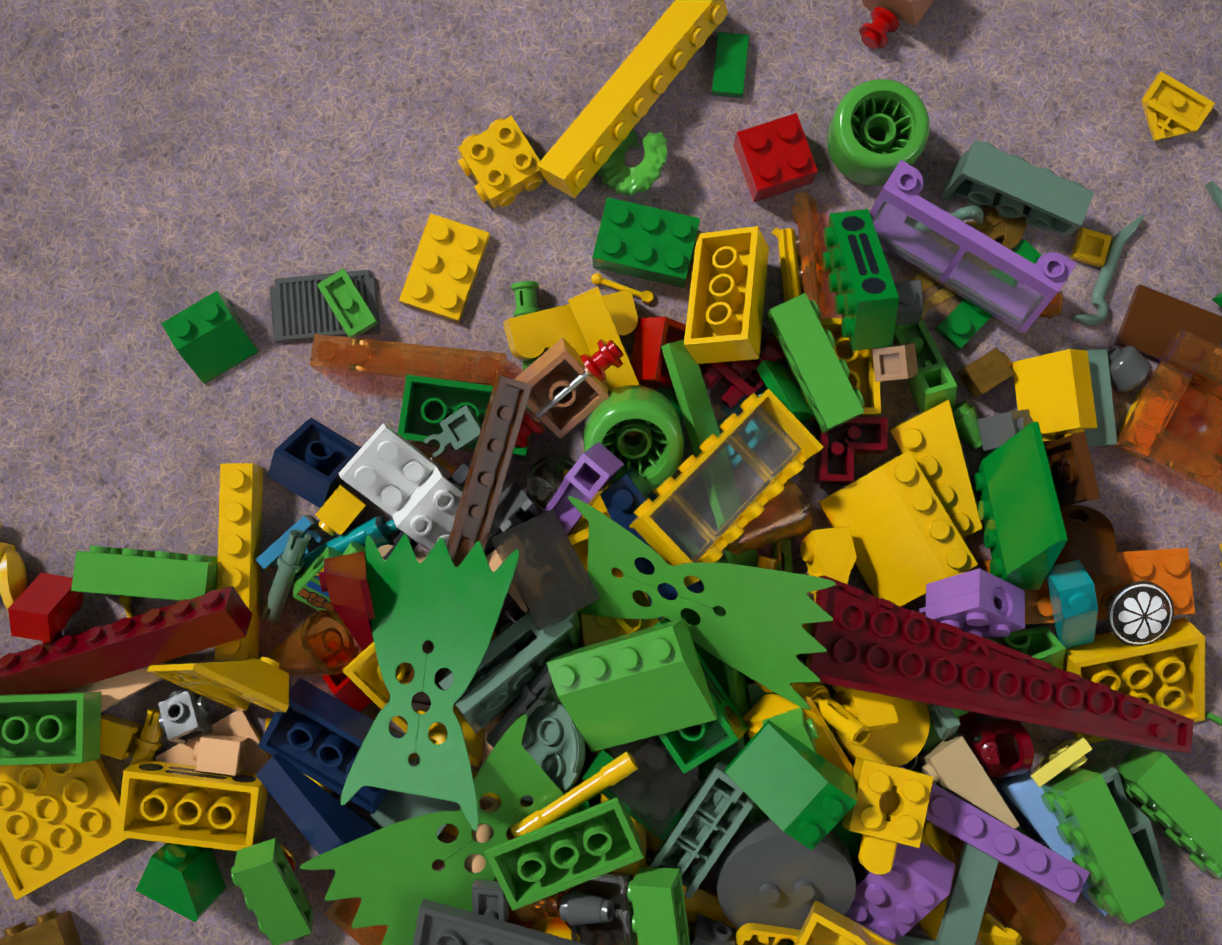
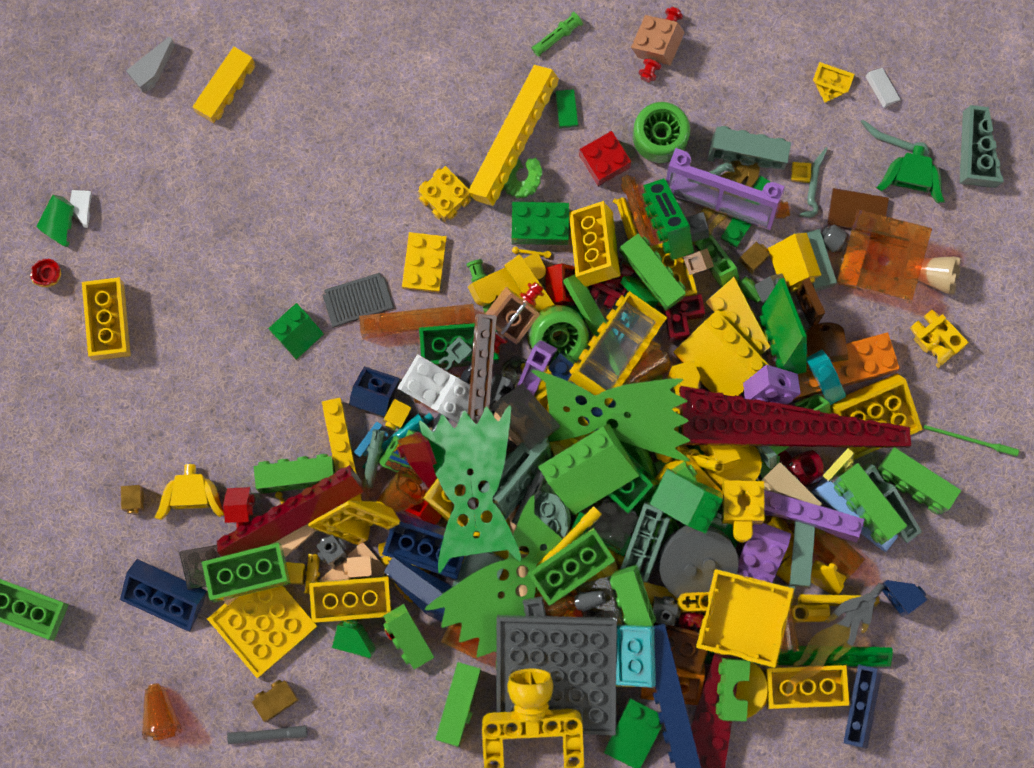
camera: 15 degrees left, 5 degrees down
(347, 304) = (372, 295): bright green plate -> none
(1139, 613) = (866, 373): dish -> none

